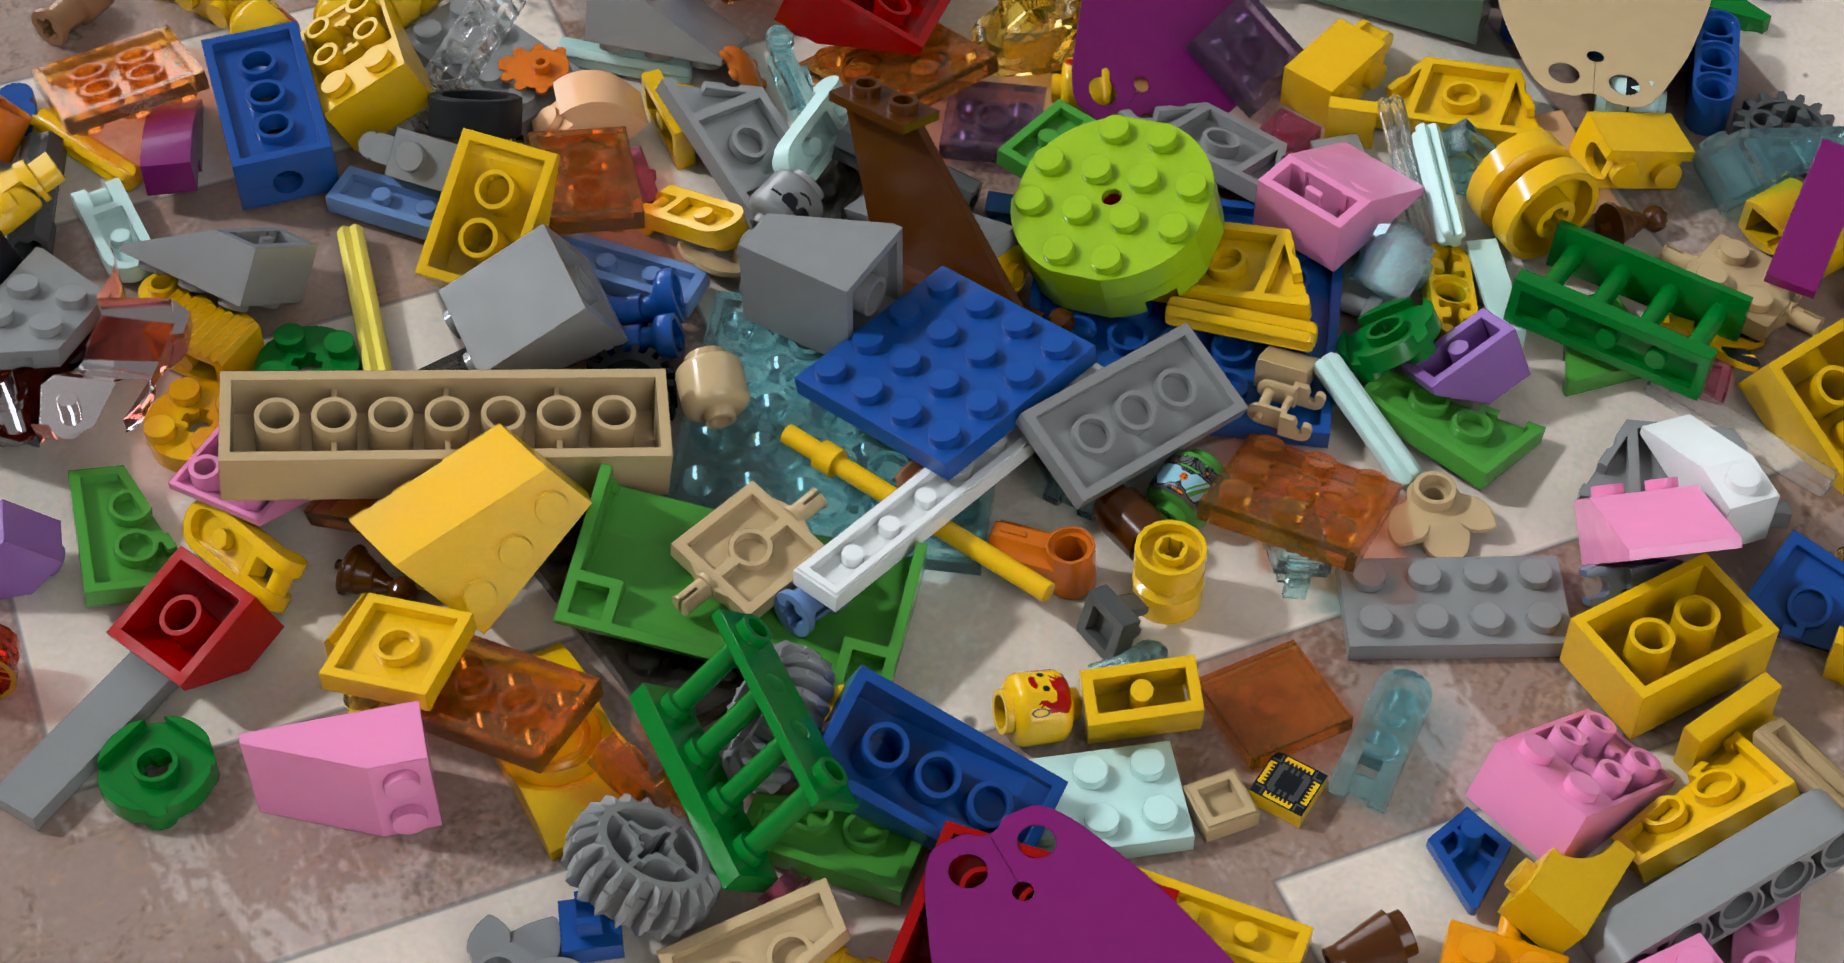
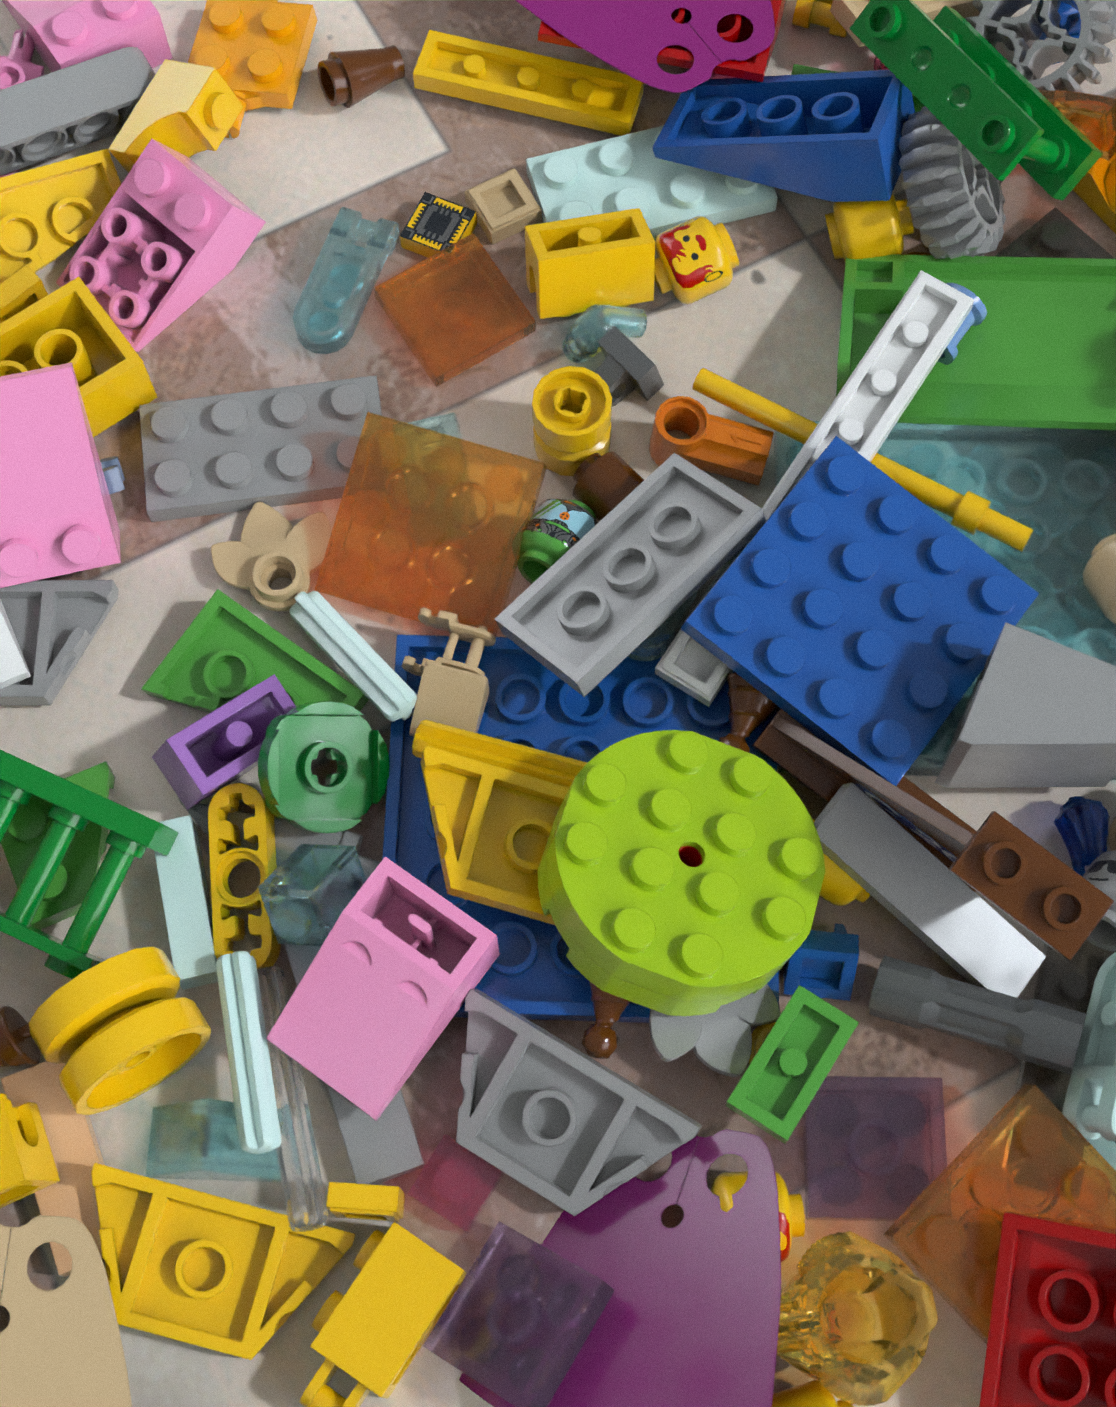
camera: 175 degrees right, 20 degrees up
(746, 550) = (1027, 357): tan plate -> none
(1469, 856) = (265, 174): blue piece -> none

